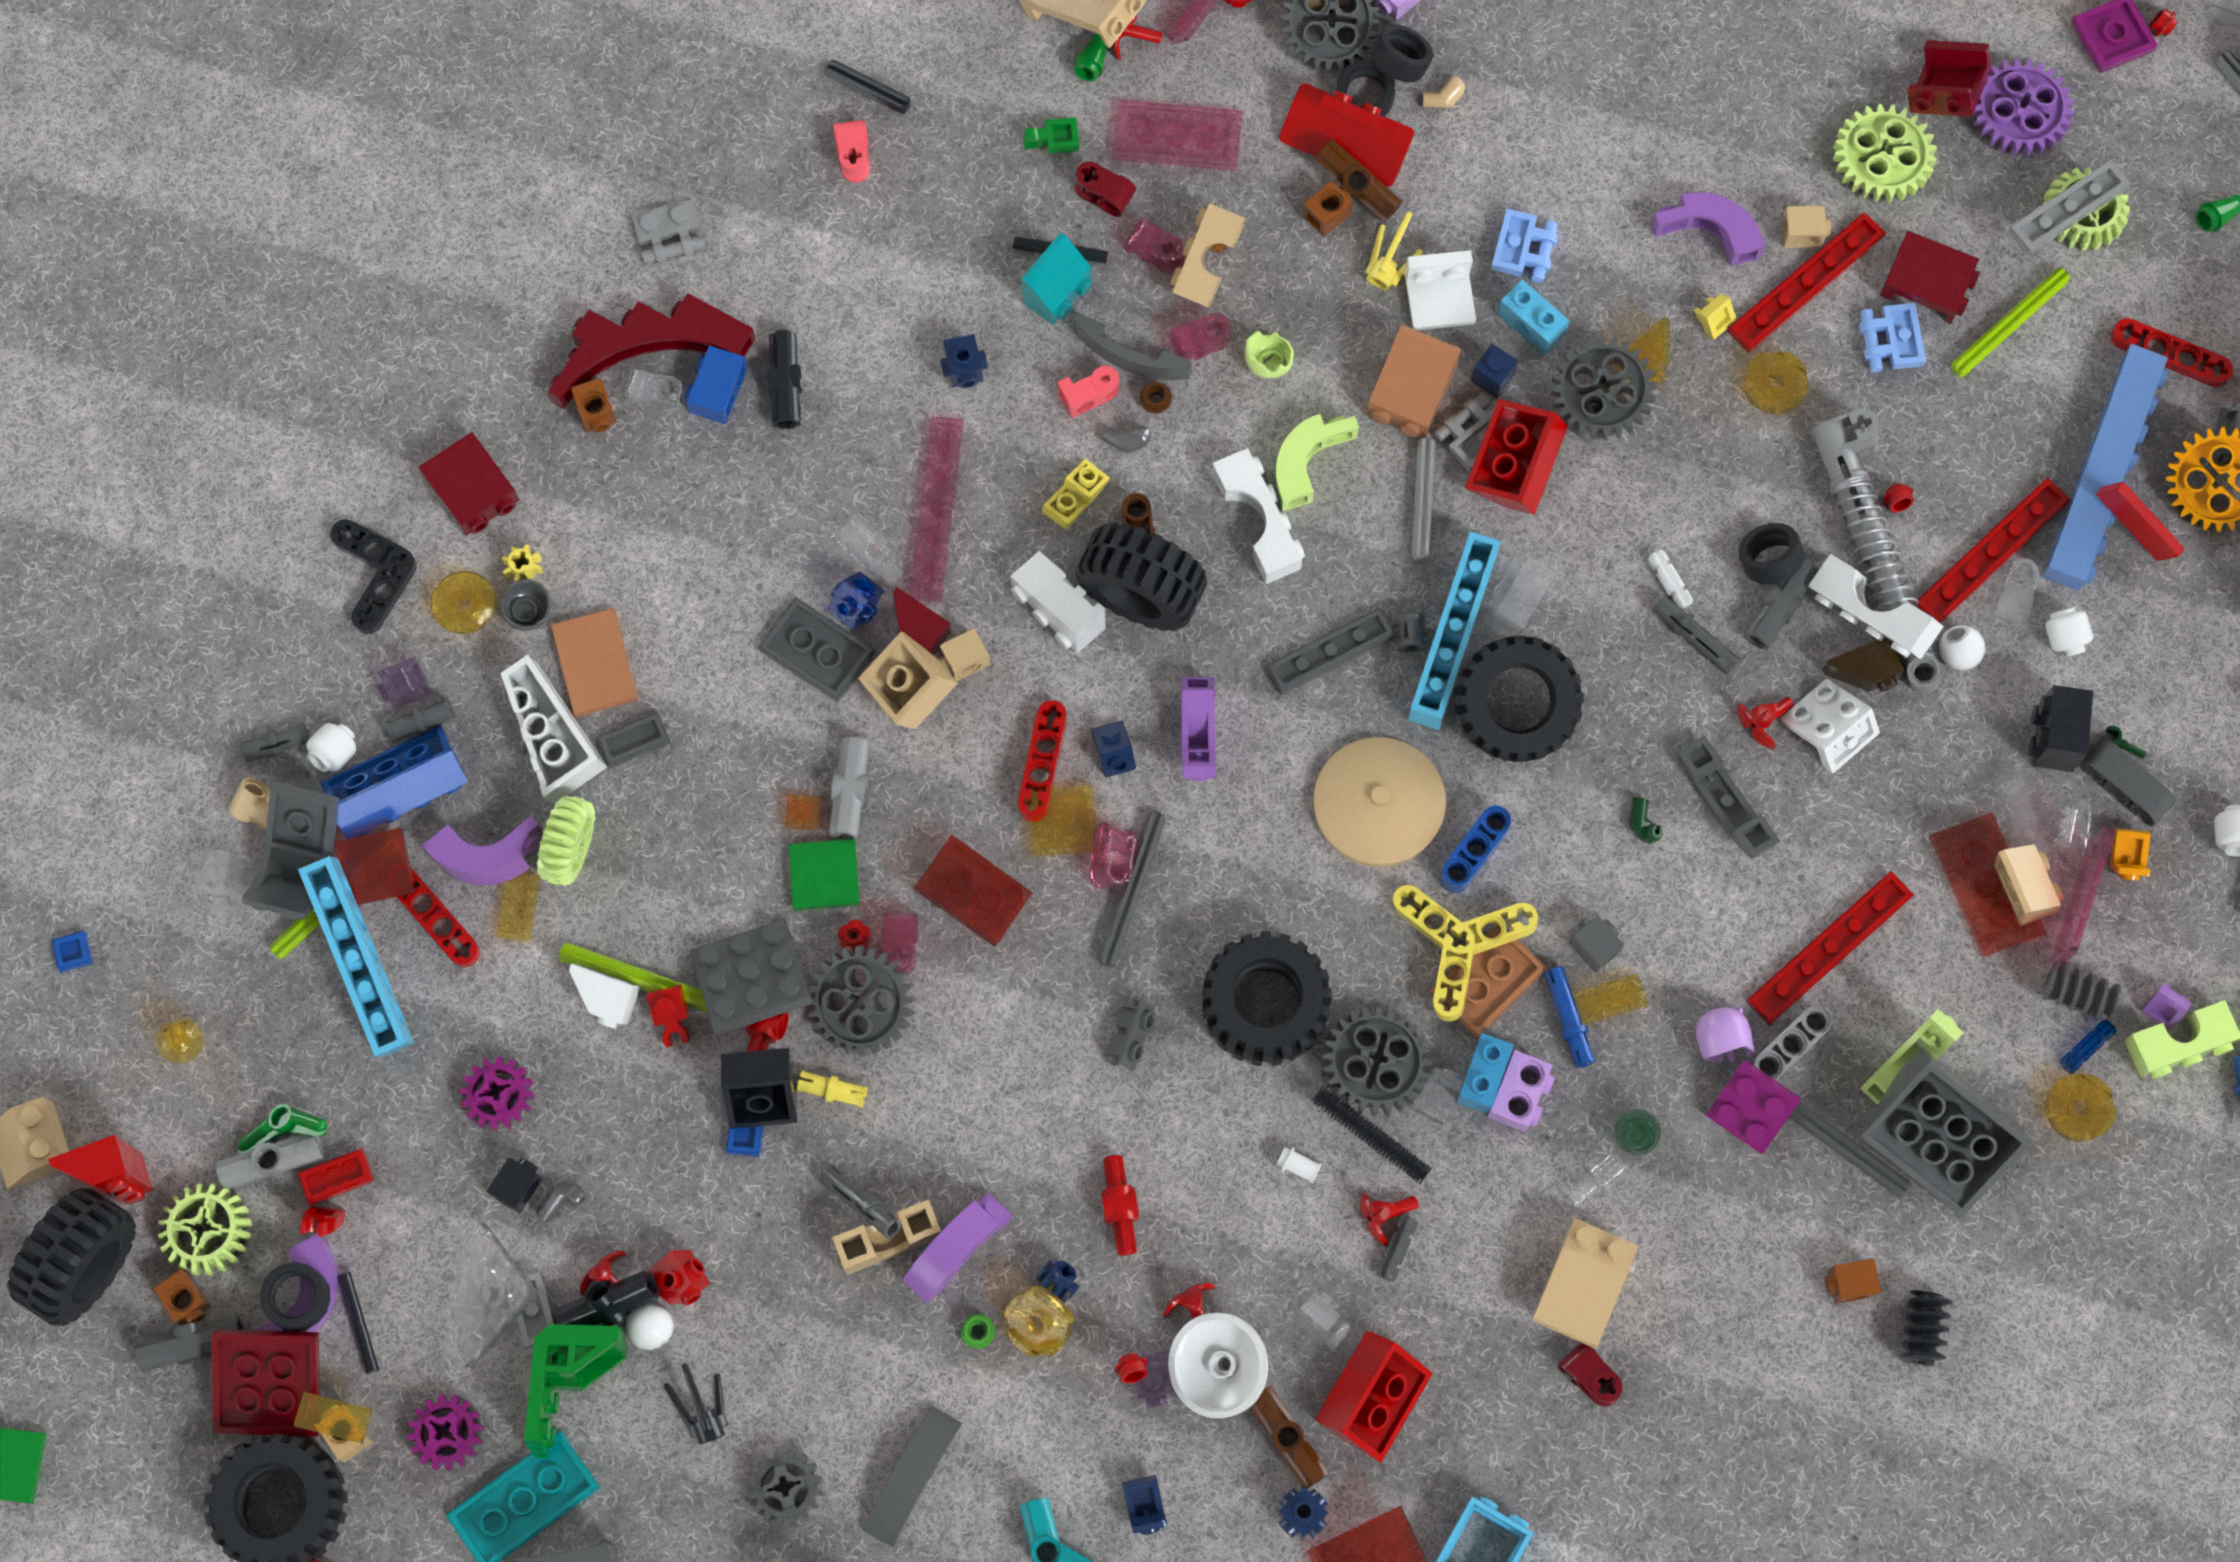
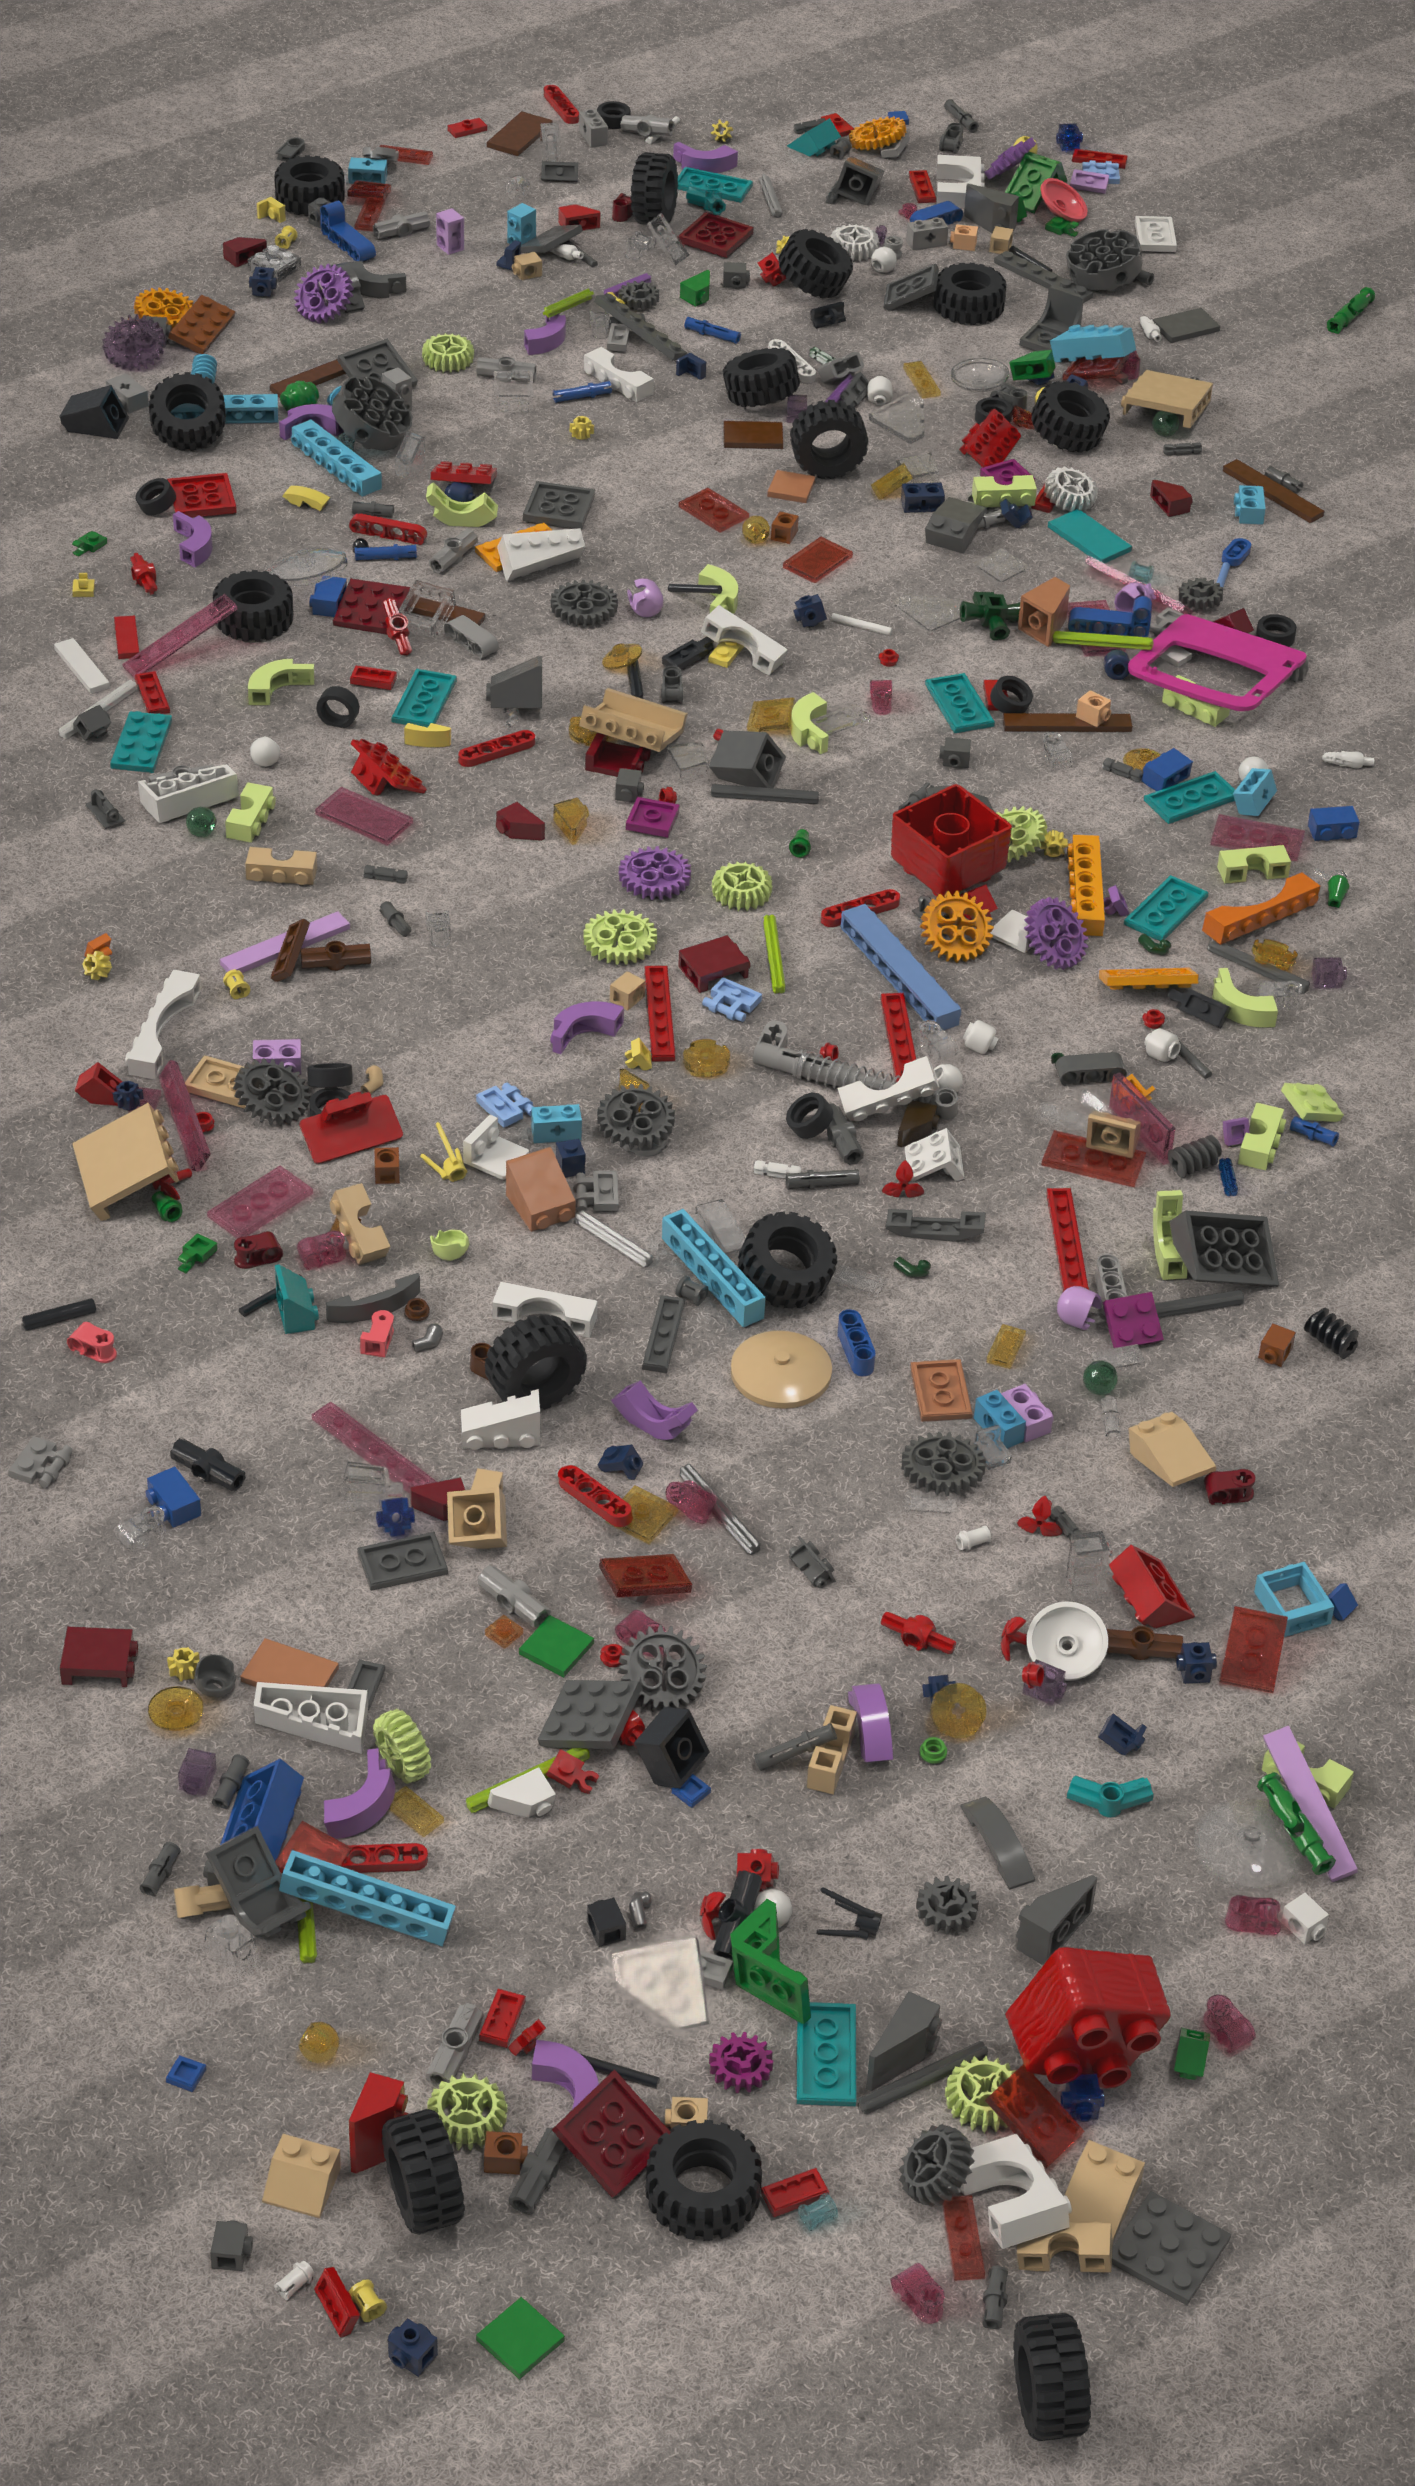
camera: 55 degrees left, 30 degrees down
(273, 1281) = (572, 2051): black tyre -> none
(282, 1120) = (434, 2022): green piece -> none
(331, 747) = (198, 1836): white head -> none
(333, 1417) = (676, 2103): clear yellow tile -> none
(384, 564) = (99, 1736): black beam -> none
(510, 1089) = (533, 1894): magenta gear -> none
(589, 395) = (117, 1563): dark orange brick -> none
(644, 330) = (95, 1508): dark red arch -> none
(832, 1089) = (712, 1720): light yellow pin -> none
(963, 361) = (295, 1374): dark blue brick -> none
(1076, 494) = (437, 1382): light yellow slope -> none
(1197, 340) = (403, 1262): clear pink piece -> none
(1274, 955) = (856, 1505): black tyre -> none
(1305, 440) = (527, 1270): yellowish green arch -> none
(1373, 194) = (367, 1140): reddish brown piece -> none
(1385, 1144) = (987, 1491): black axle -> none
(1460, 955) = (910, 1391): light yellow piece -> none
(1516, 456) = (635, 1177): red slope -> none
(1573, 1029) = (999, 1367): blue pin -> none
(1596, 941) = (966, 1328): dark grey brick -> none
(1950, 78) = (609, 881): dark red panel -> none
(2061, 728) = (1036, 1067): black brick -> none
(2069, 207) = (739, 882): light grey plate -> none
(2098, 1102) = (1258, 1188): clear yellow plate -> none
(2140, 521) = (948, 968): red tile -> none

